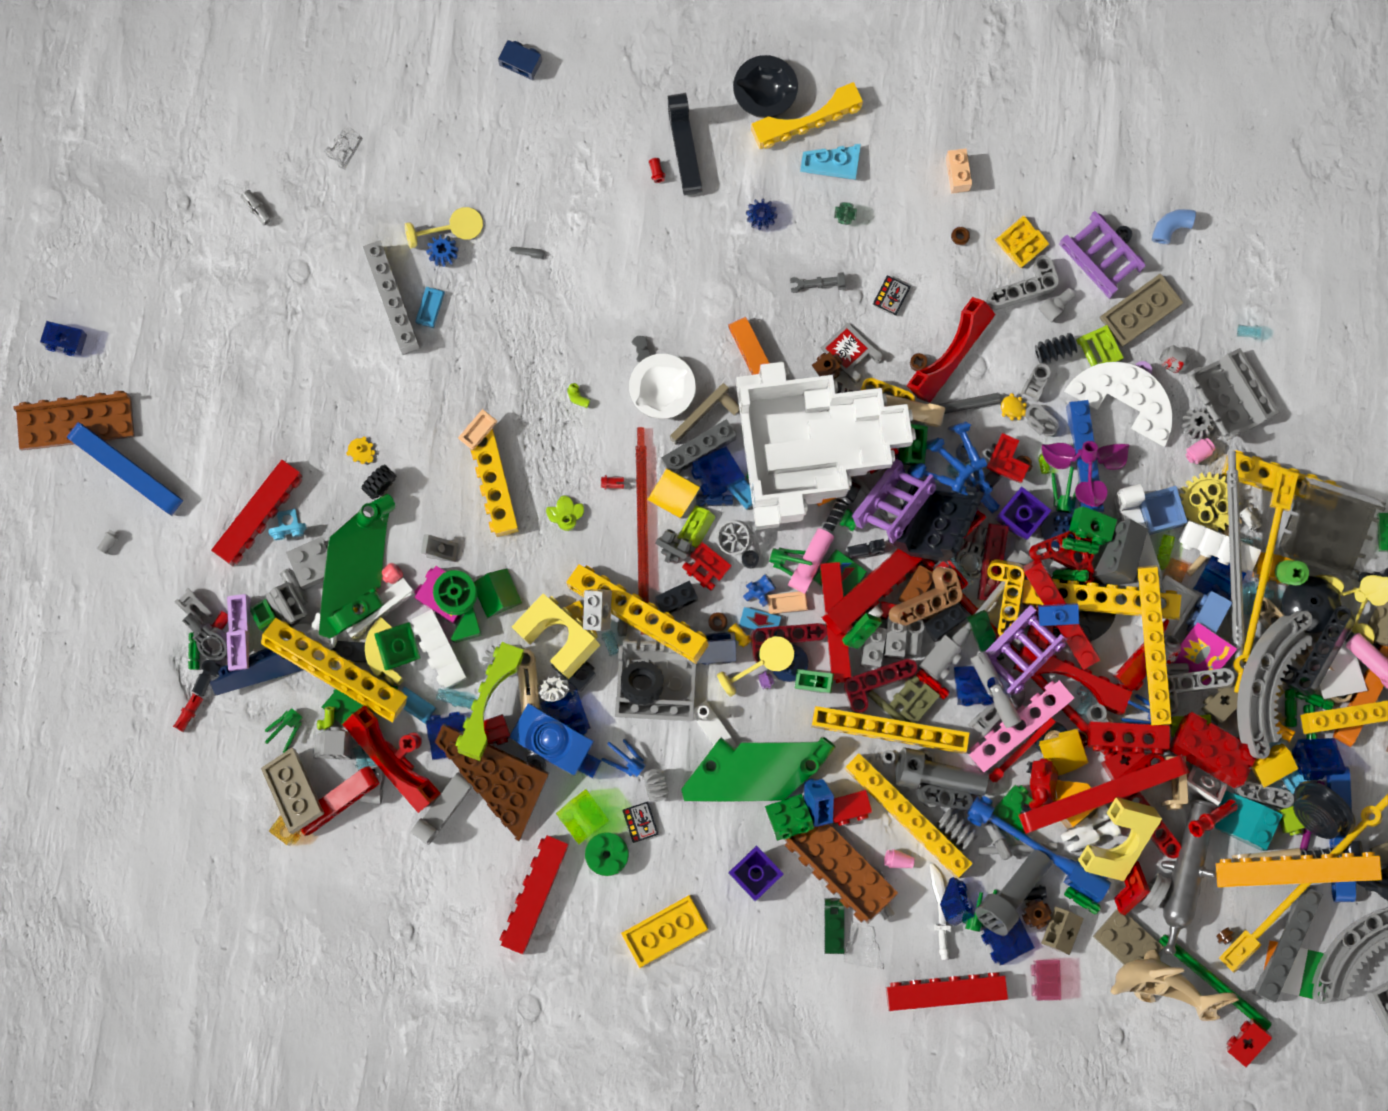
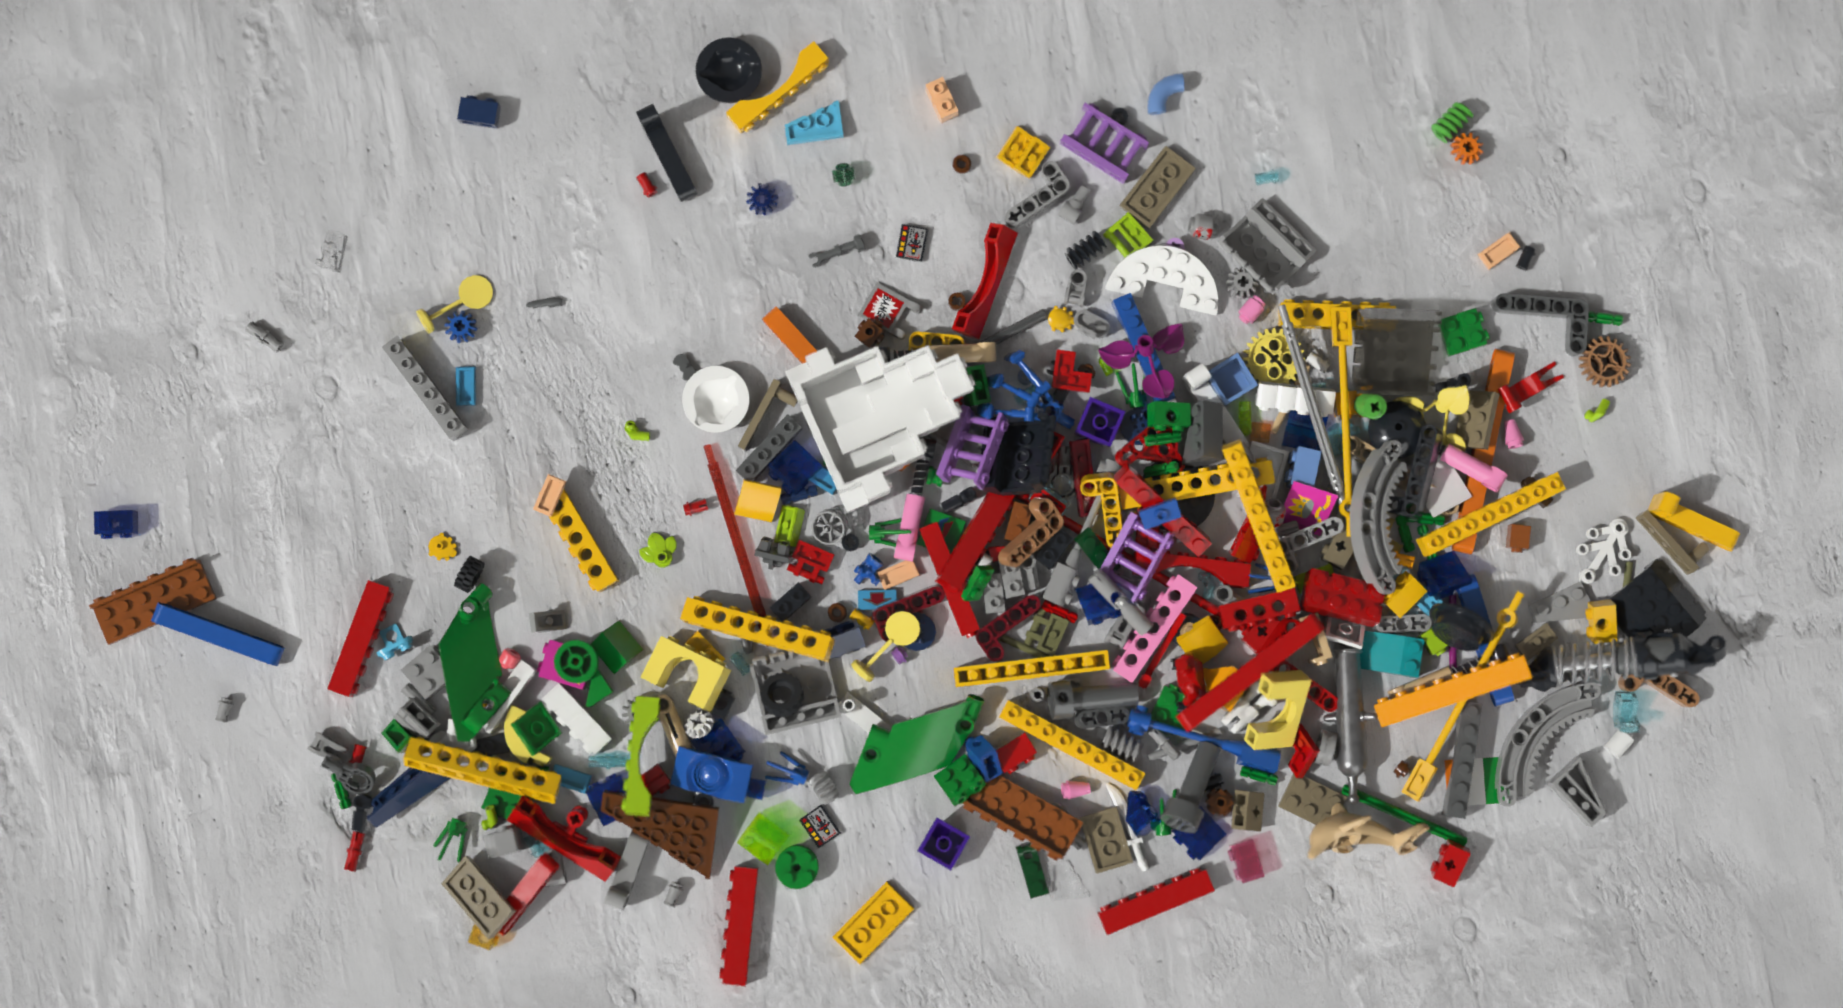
camera: 20 degrees left, 5 degrees up
(238, 632) = (380, 763): lavender slope -> none
(479, 845) = (673, 894): none -> light grey pin
(597, 609) = (718, 638): light grey brick -> none
(814, 681) = (946, 643): green slope -> none
(915, 918) = (1106, 840): none -> dark tan plate
(1208, 821) = (1355, 667): red pin -> none

